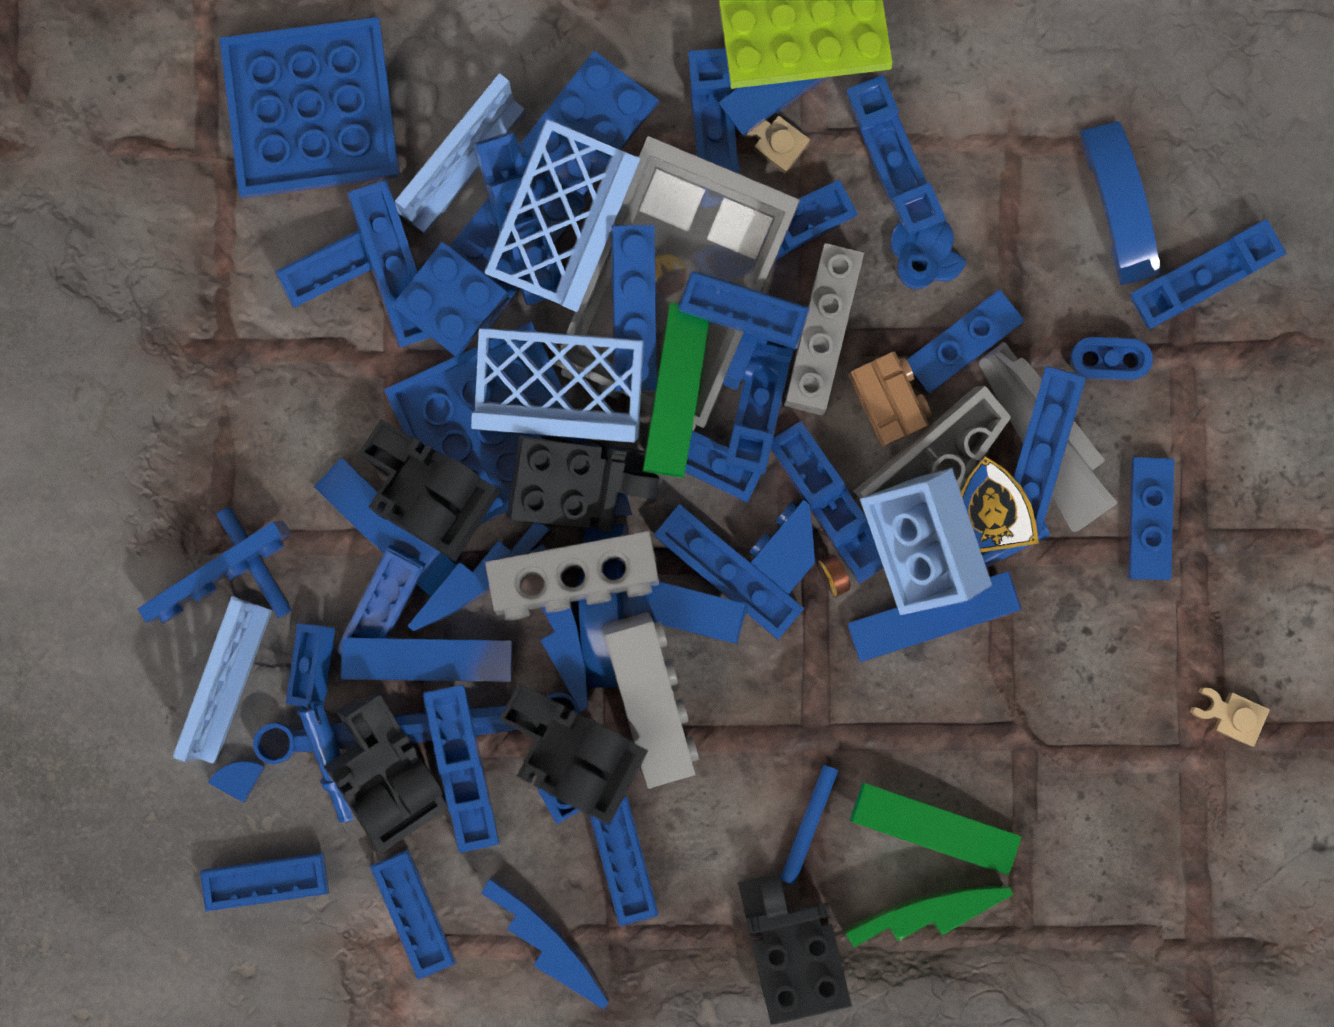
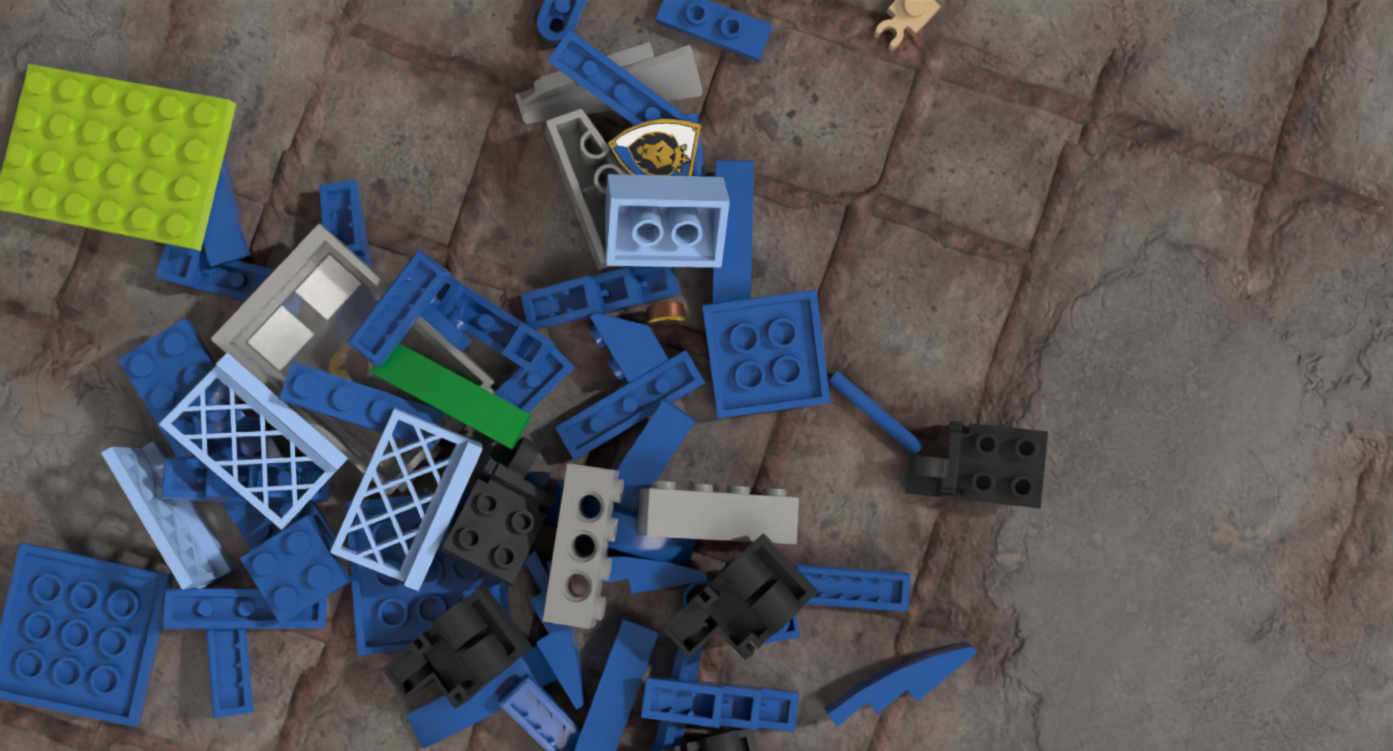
camera: 65 degrees left, 0 degrees up
(778, 143) = (268, 228): tan plate -> none
(824, 329) = (446, 245): light grey brick -> none
(829, 691) = (766, 353): none -> blue plate
(889, 398) = (528, 210): medium nougat brick -> none
(893, 156) = (315, 132): blue slope -> none
(929, 249) = (409, 131): blue plate -> none
(935, 828) = (917, 304): green slope -> none
(943, 909) = (989, 322): green slope -> none
(964, 341) = (502, 129): blue plate -> none

